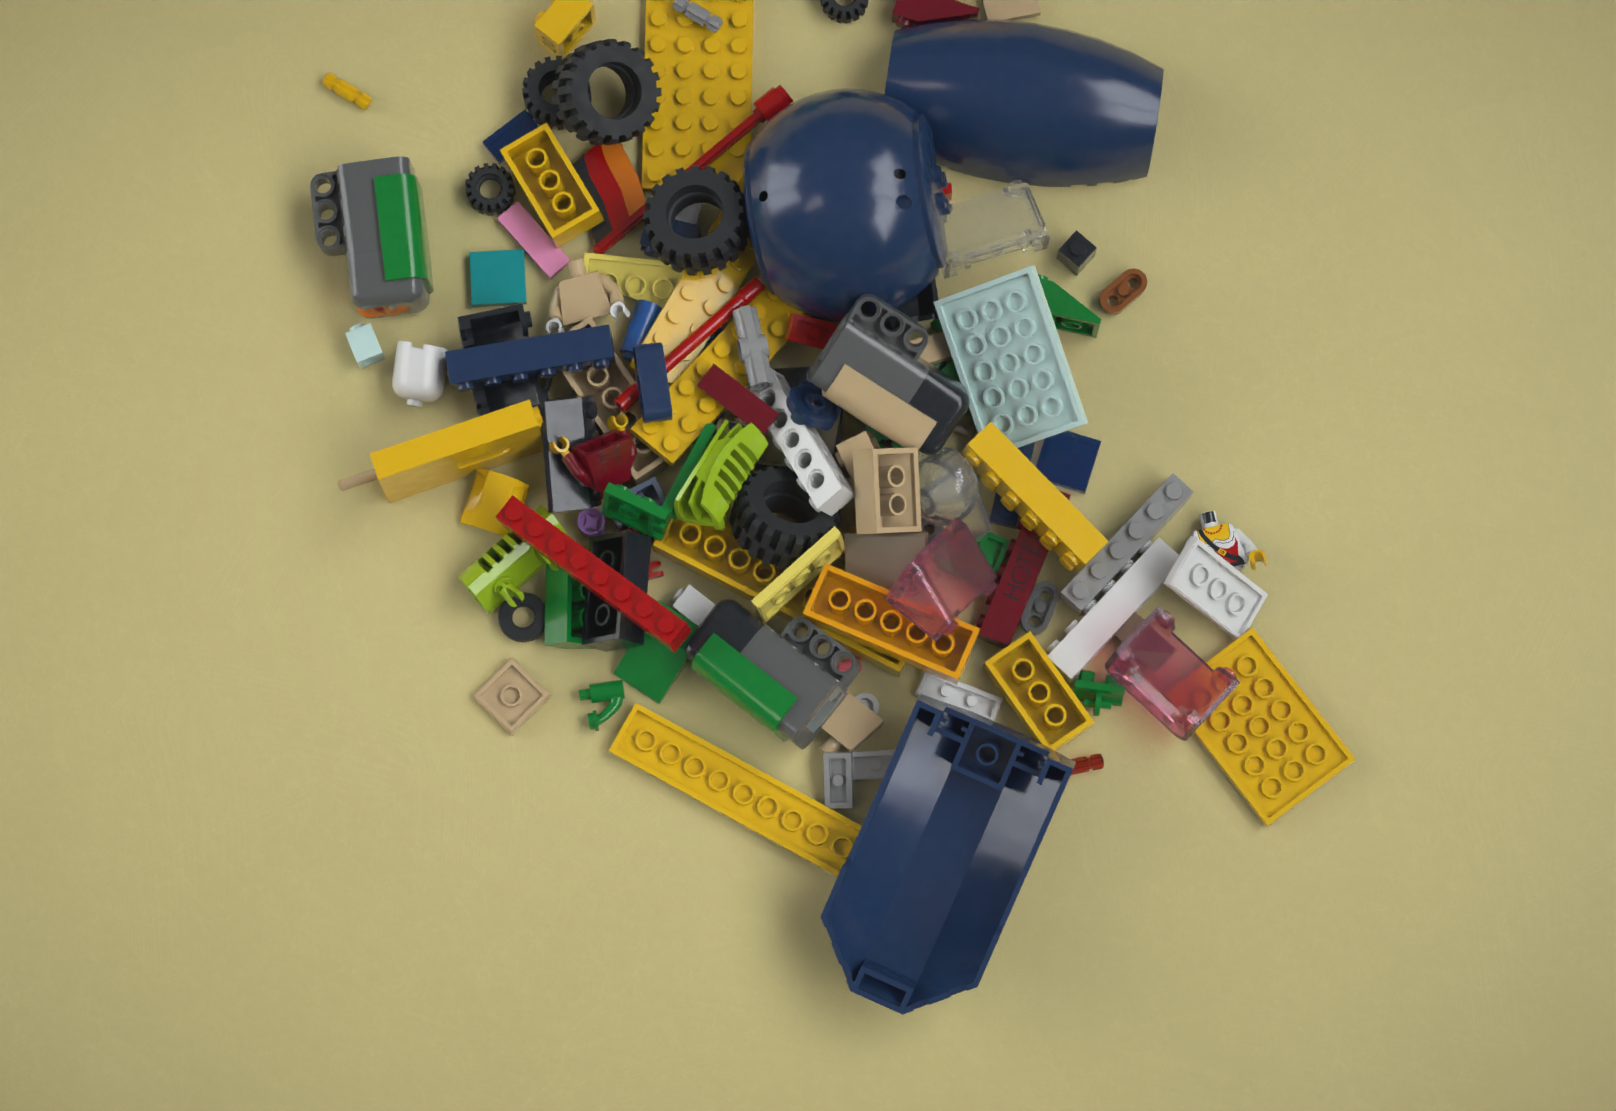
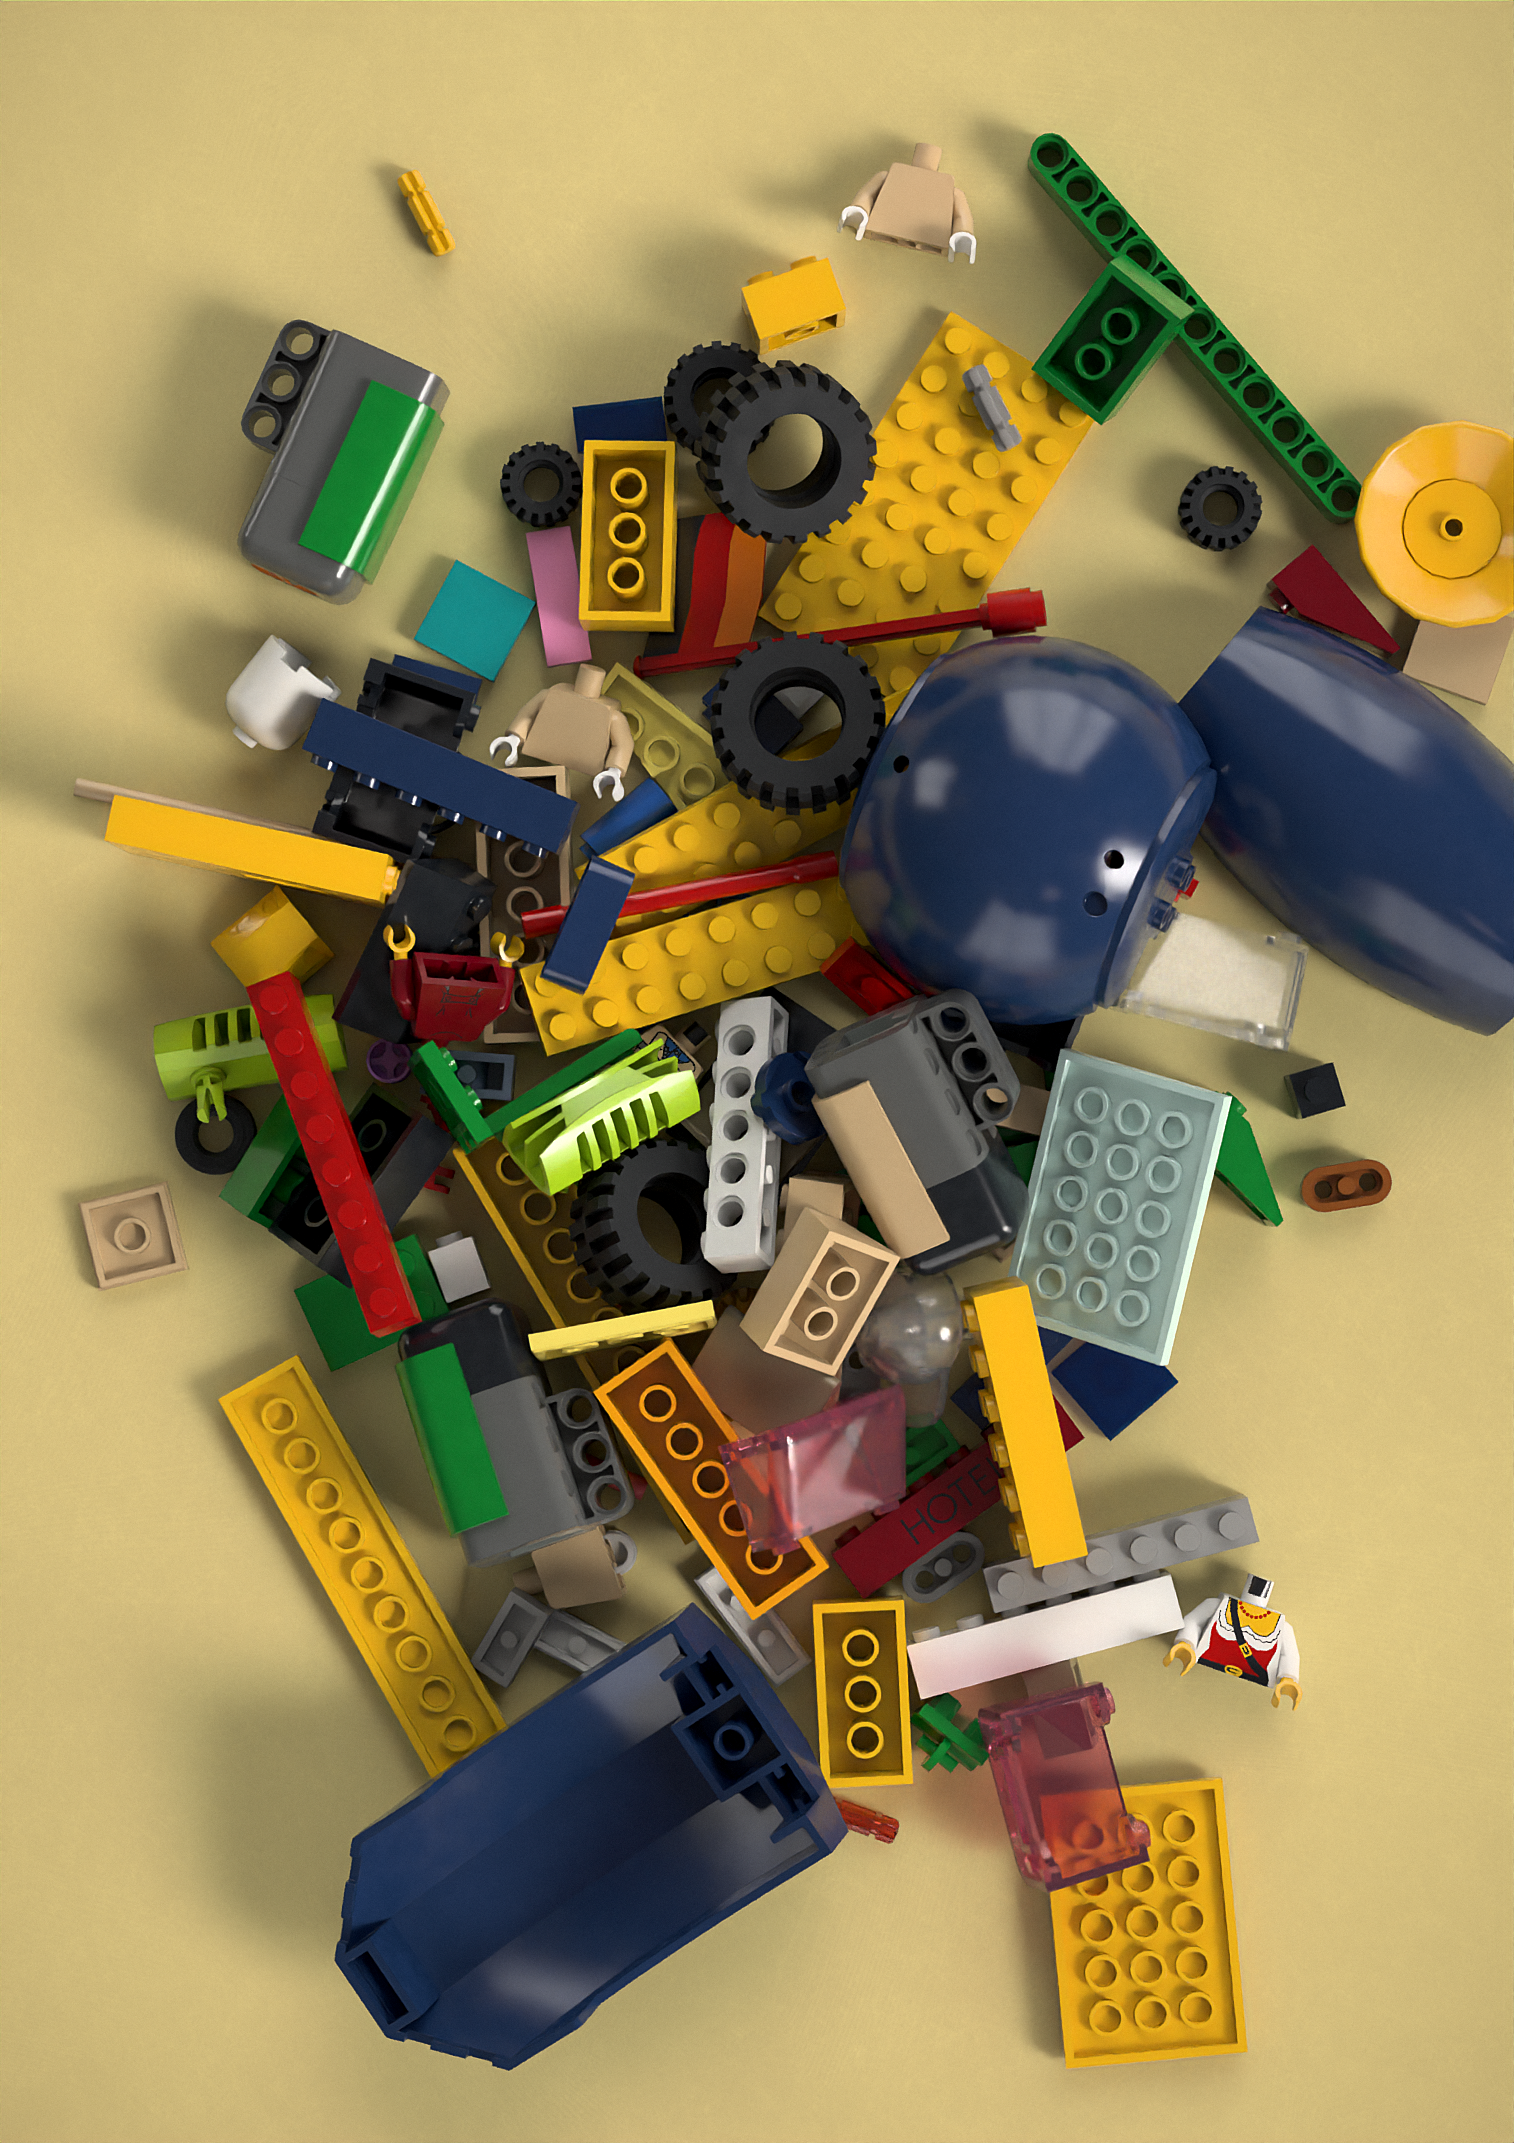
camera: 30 degrees right, 10 degrees up
(364, 345) = (227, 605): light aqua brick -> none
(602, 692) = (259, 1308): green plant -> none
(738, 399) = (696, 1021): dark red tile -> none
(752, 348) = (763, 957): light grey piece -> none
(1215, 588) = (1202, 1699): white tile -> none

